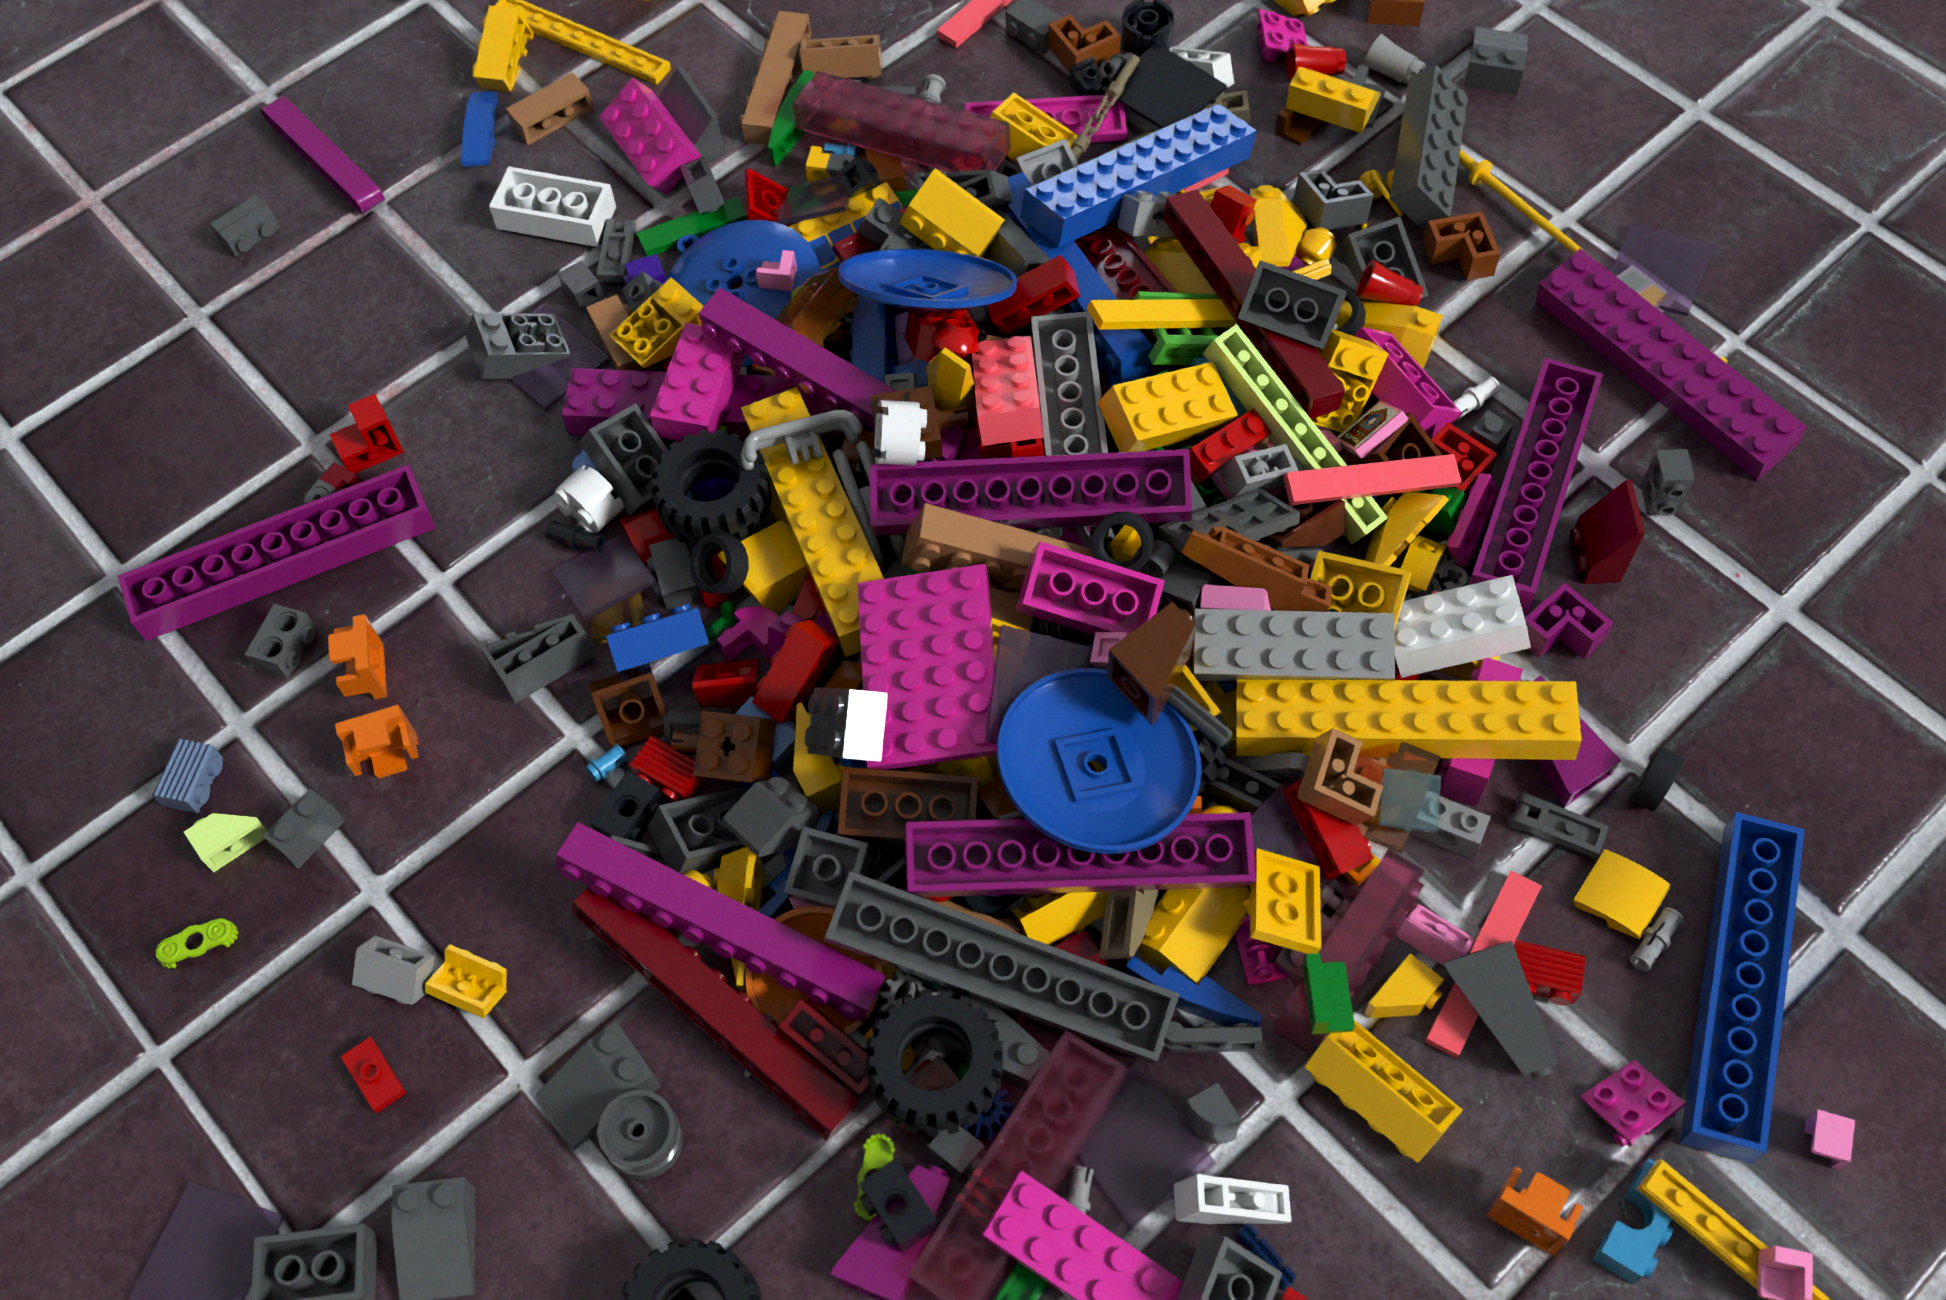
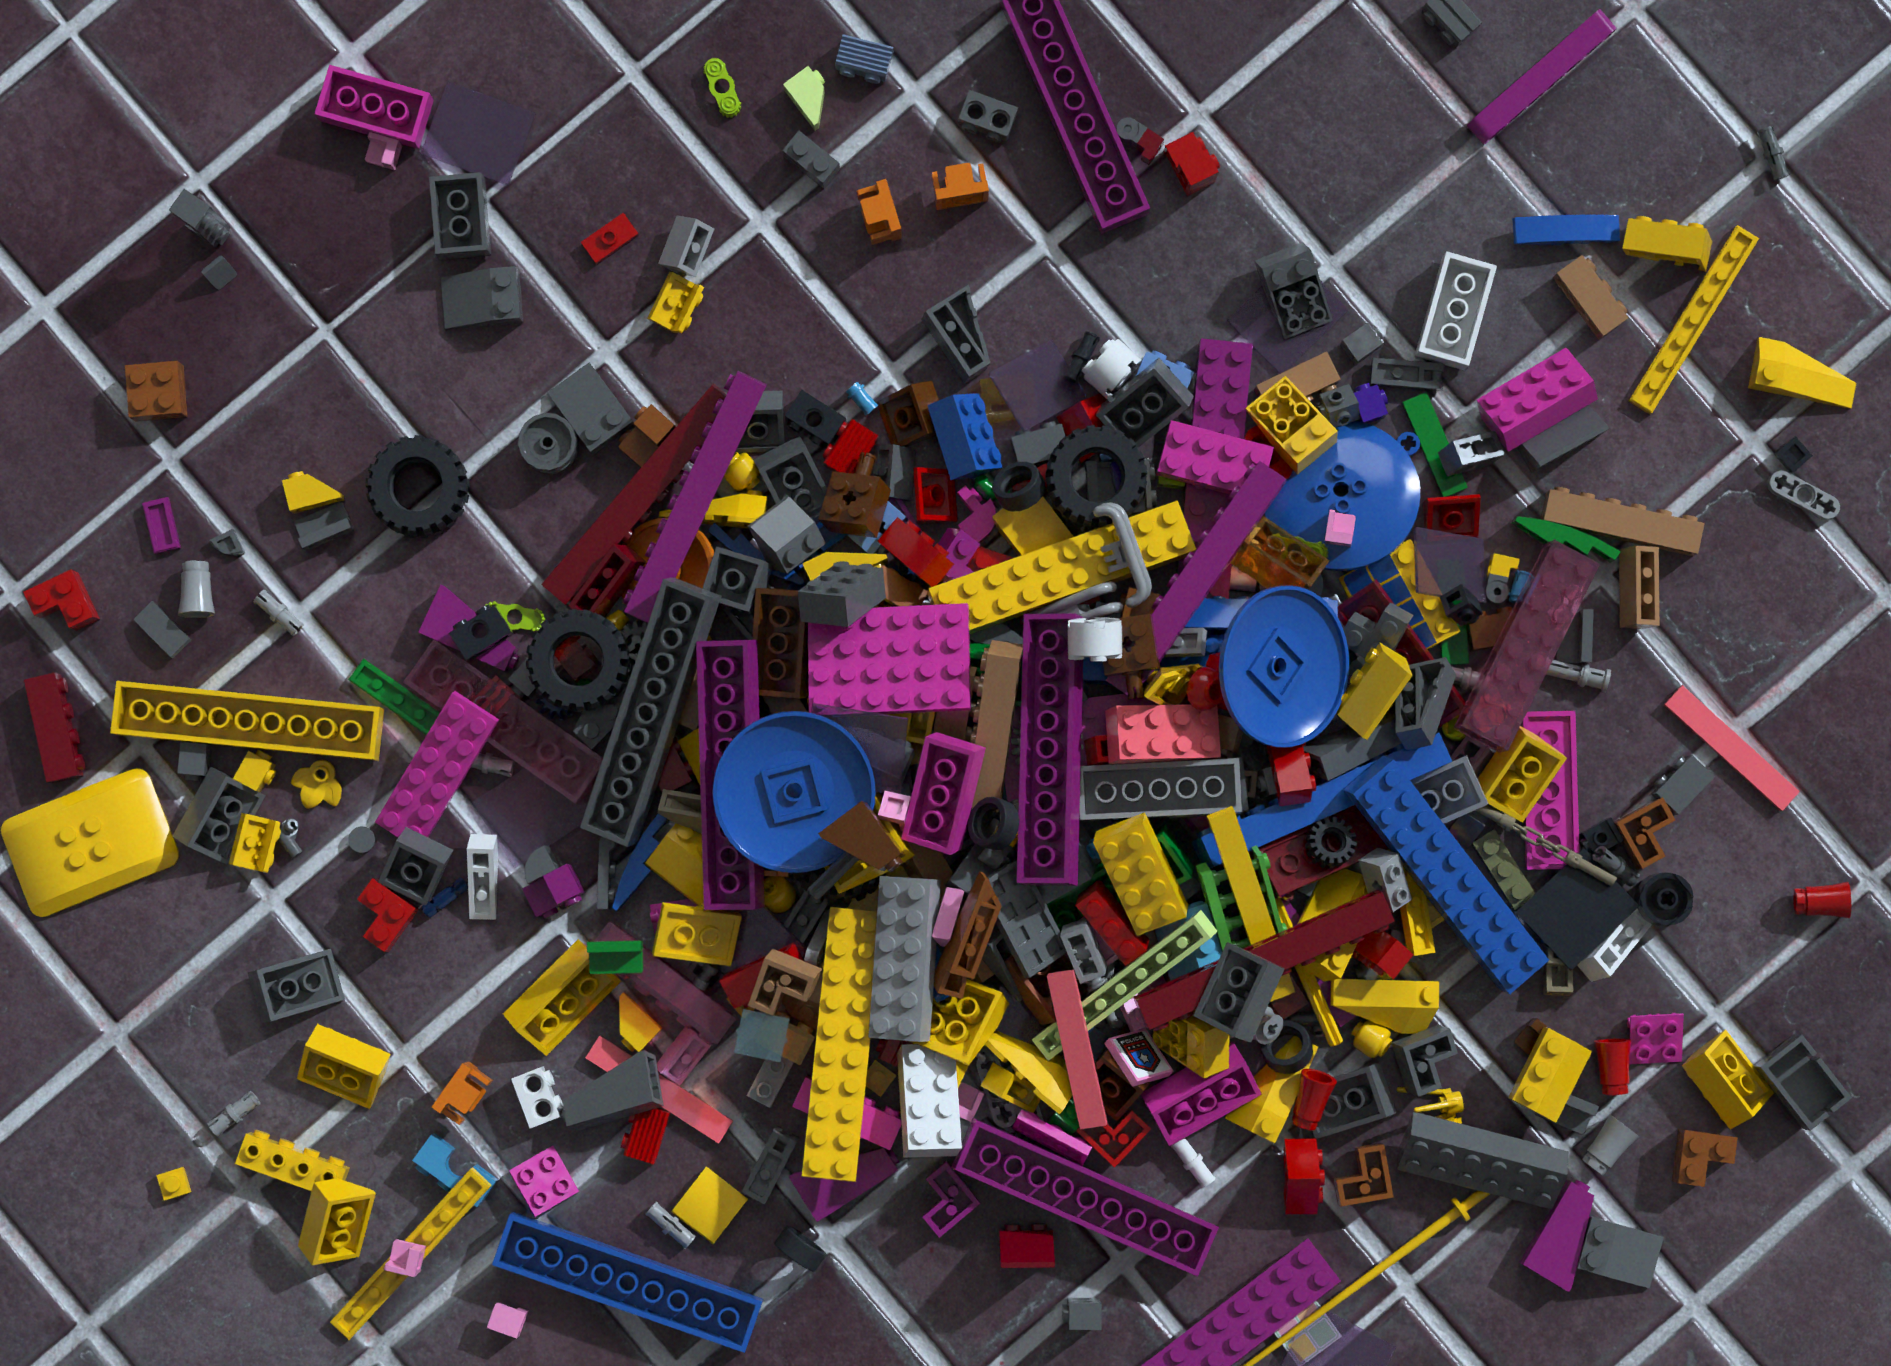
camera: 85 degrees right, 25 degrees up
(631, 1000) = (649, 433): none -> dark orange brick
(1114, 246) = (1323, 856): none -> black tyre
(1242, 1083) = (554, 890): none -> magenta brick
(1470, 292) = (1302, 1176): none -> red brick
(1492, 432) = (1145, 1168): dark grey brick -> none
(1499, 96) = (1560, 1237): none -> magenta slope
(1525, 1120) = (530, 1099): none -> white brick

